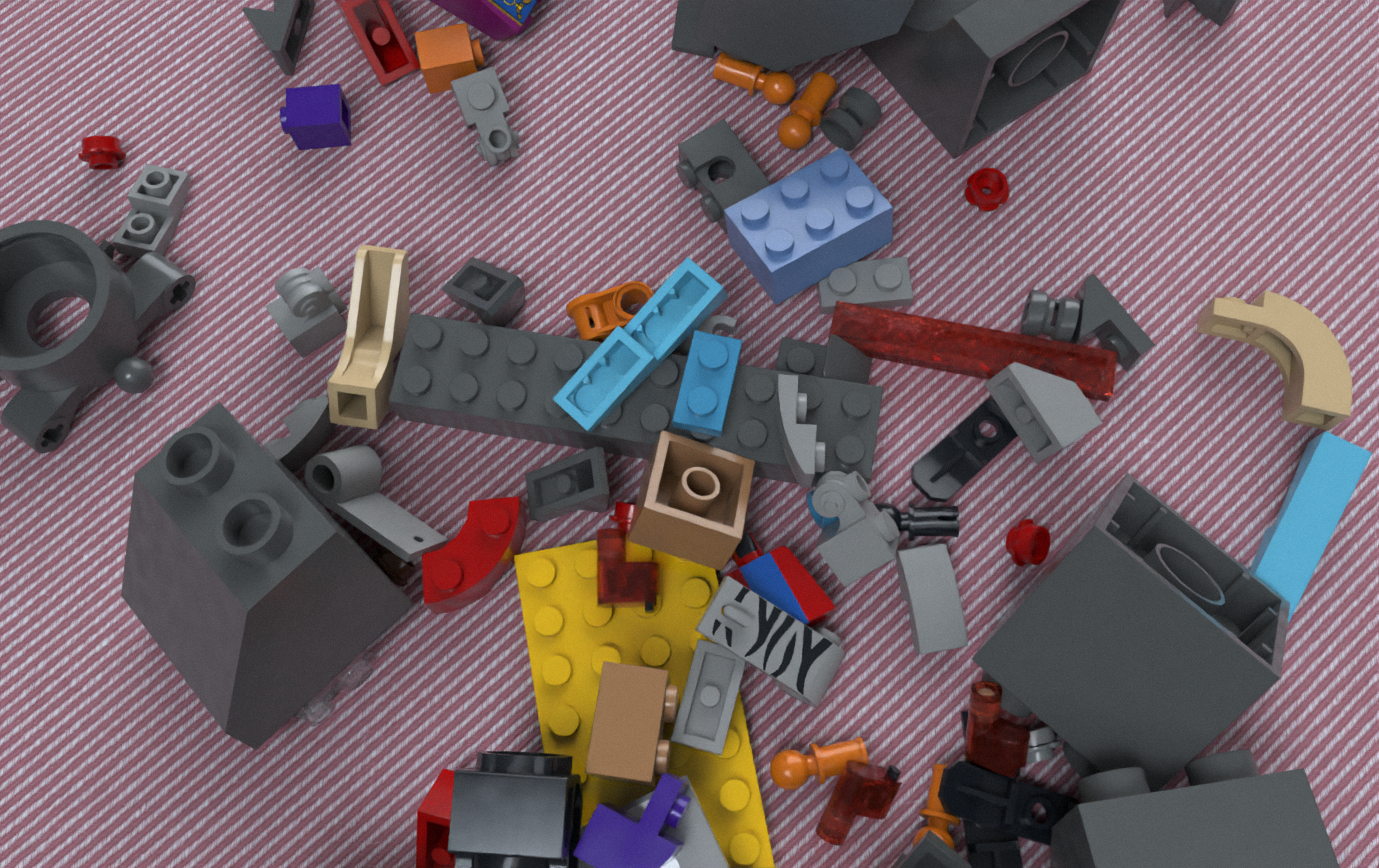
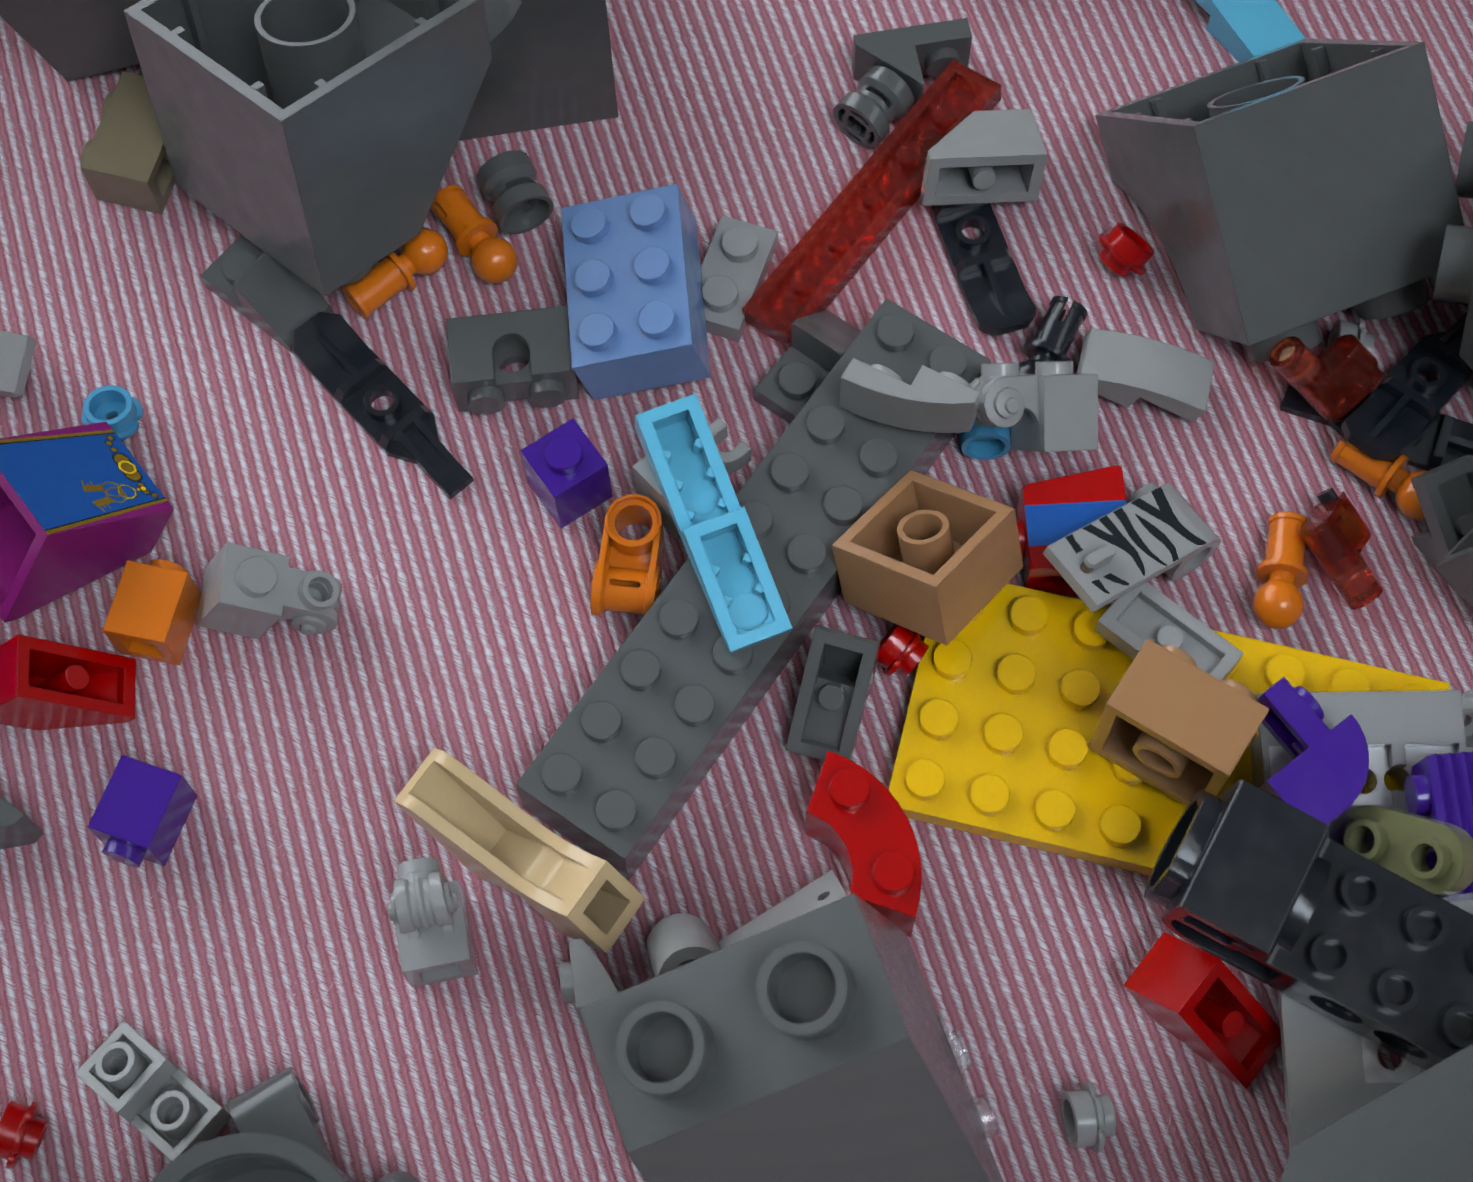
camera: 65 degrees left, 5 degrees down
(347, 783) = (1087, 1118): none -> light grey plate
(487, 292) = (519, 693): dark grey slope -> none
(623, 582) = (982, 686): clear red piece -> none
(655, 246) = (567, 473): none -> dark purple brick
(670, 95) = (356, 379): none -> black piece
(707, 383) = (797, 472): dark azure plate -> none
(987, 179) = (681, 85): red plate -> none

